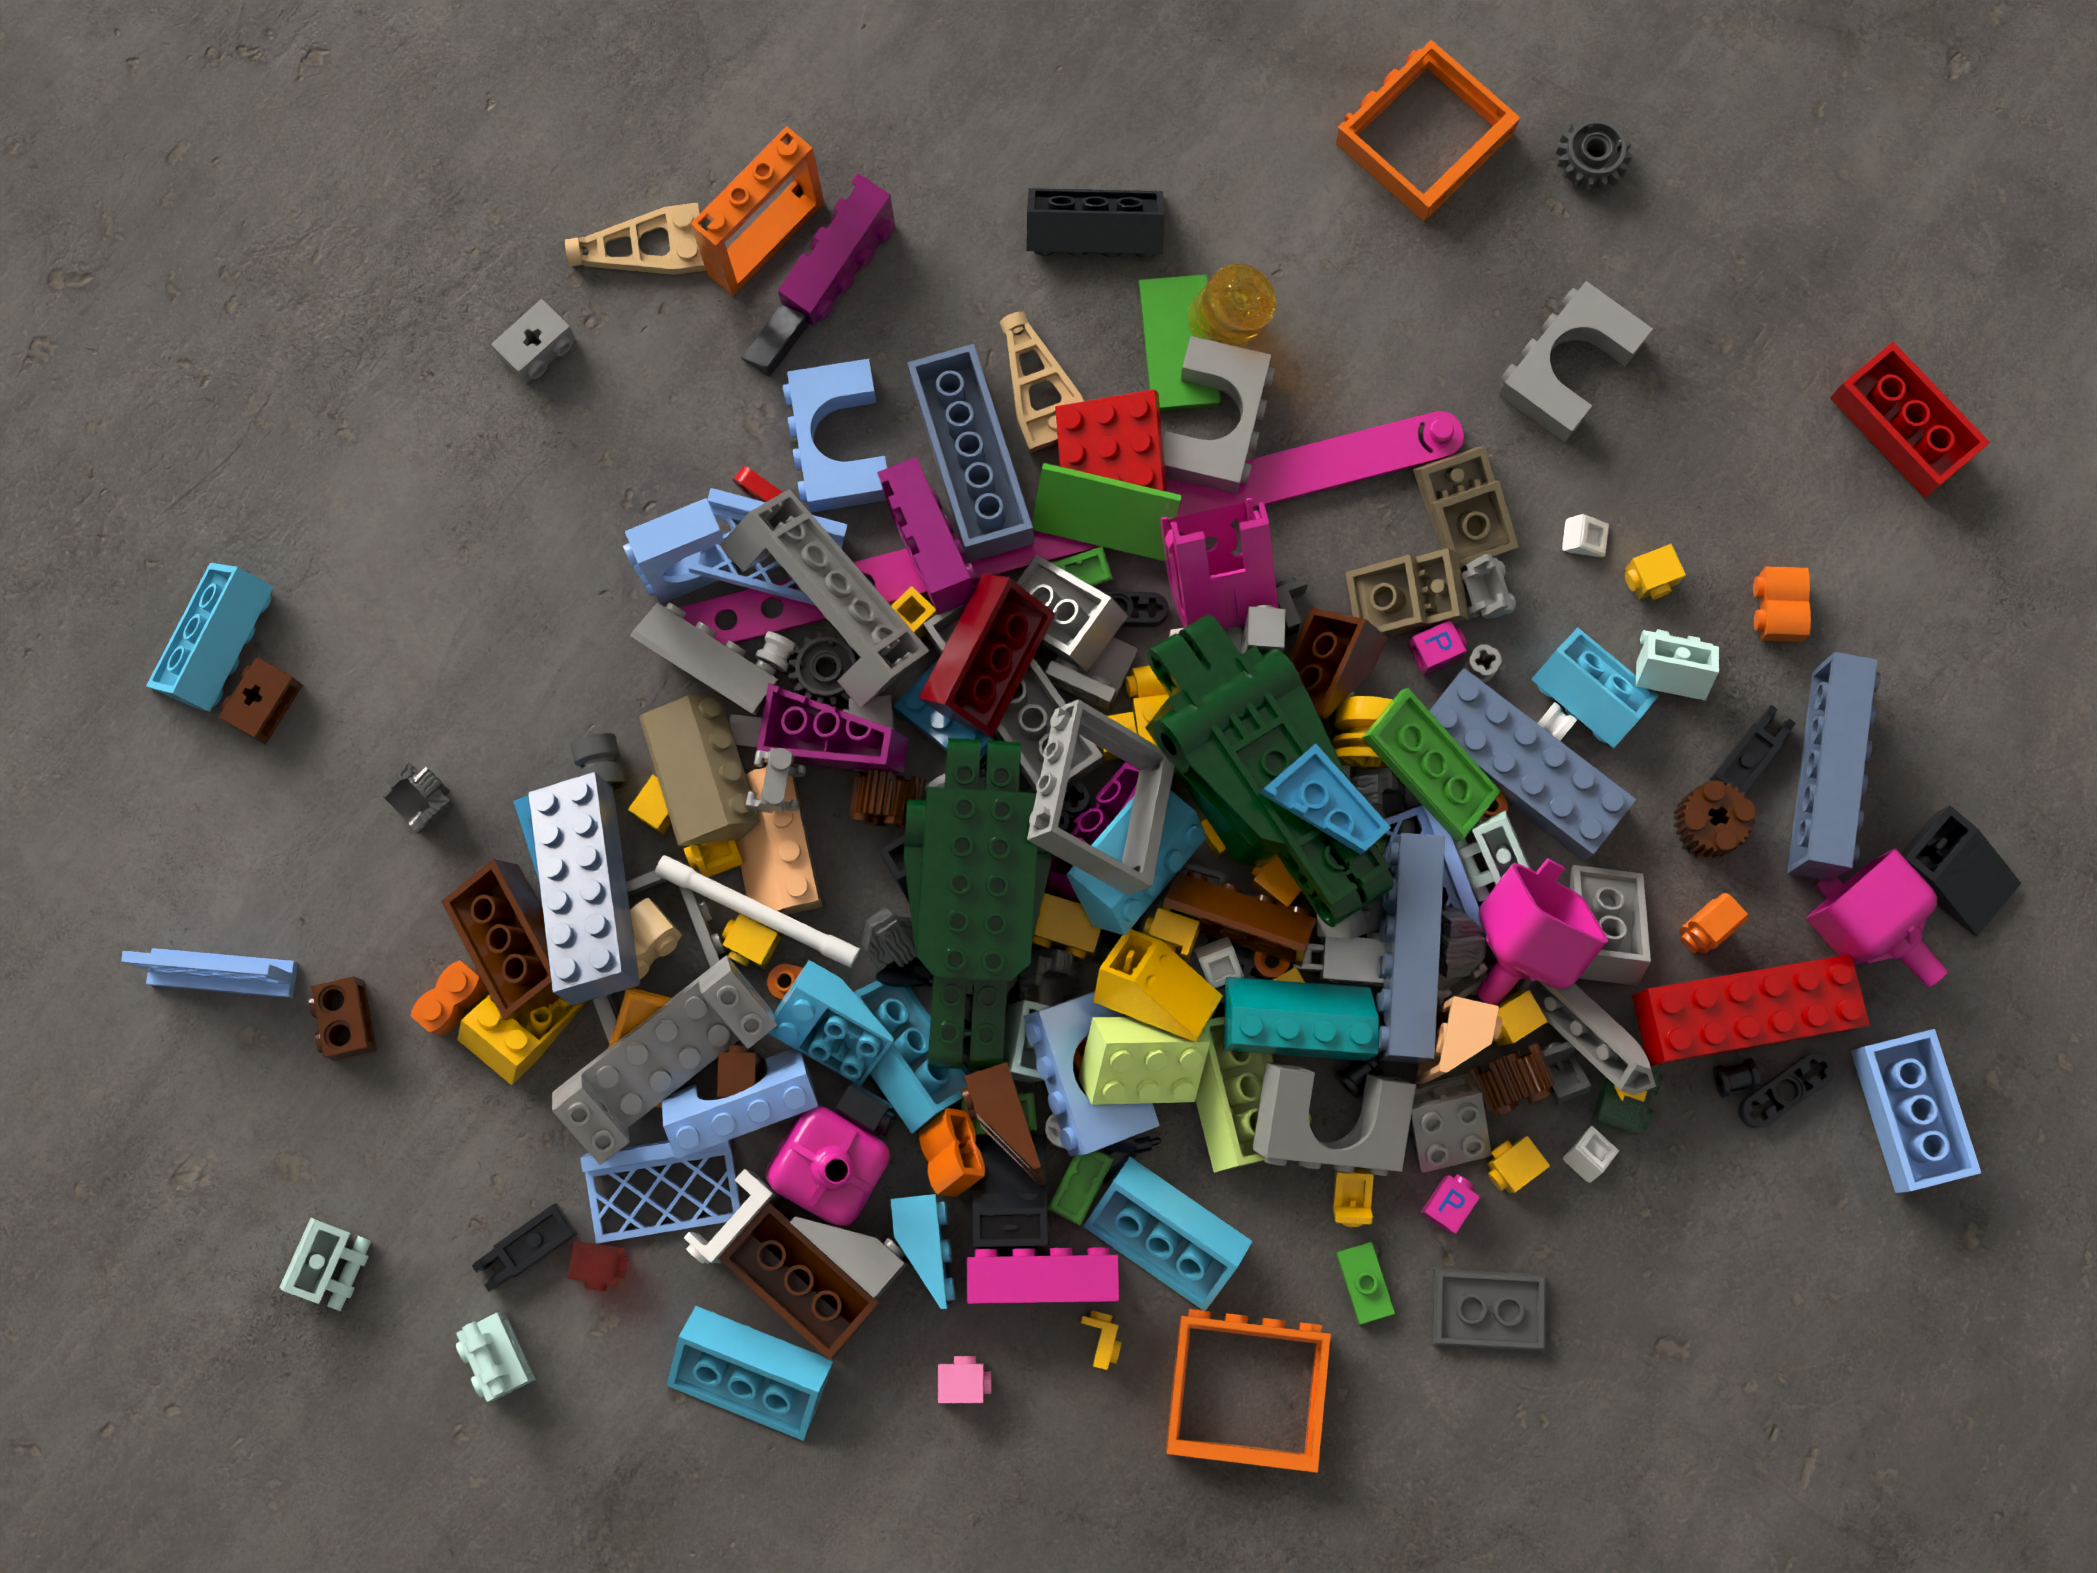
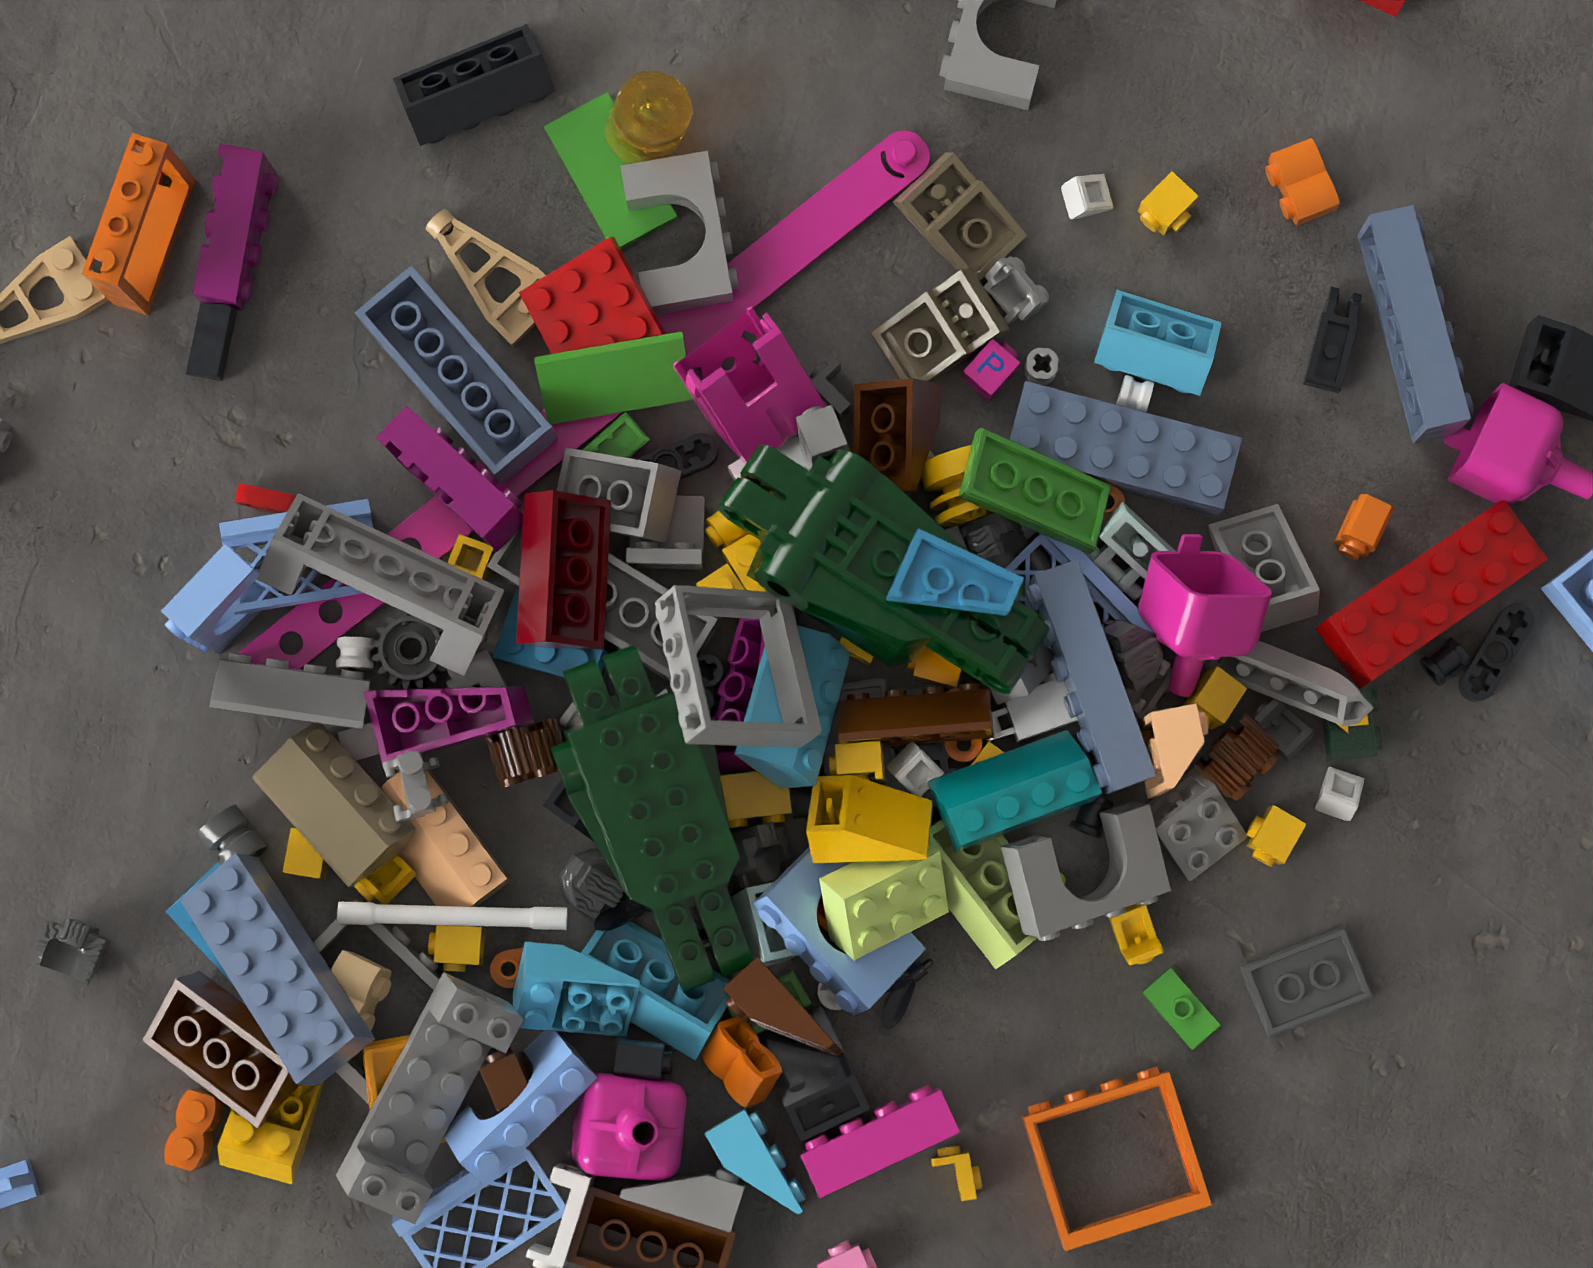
camera: 20 degrees left, 5 degrees up
(352, 1015) = (107, 1186): reddish brown brick -> none
(813, 396) = (275, 383): light blue arch -> none
(1080, 1186) = (876, 1038): bright green plate -> none
(1168, 1234) = (977, 1046): medium azure slope -> none
(1450, 1203) = (1229, 899): dark pink brick -> none
(1676, 664) = (1225, 286): light aqua brick -> none
(1729, 808) = (1338, 409): reddish brown brick -> none

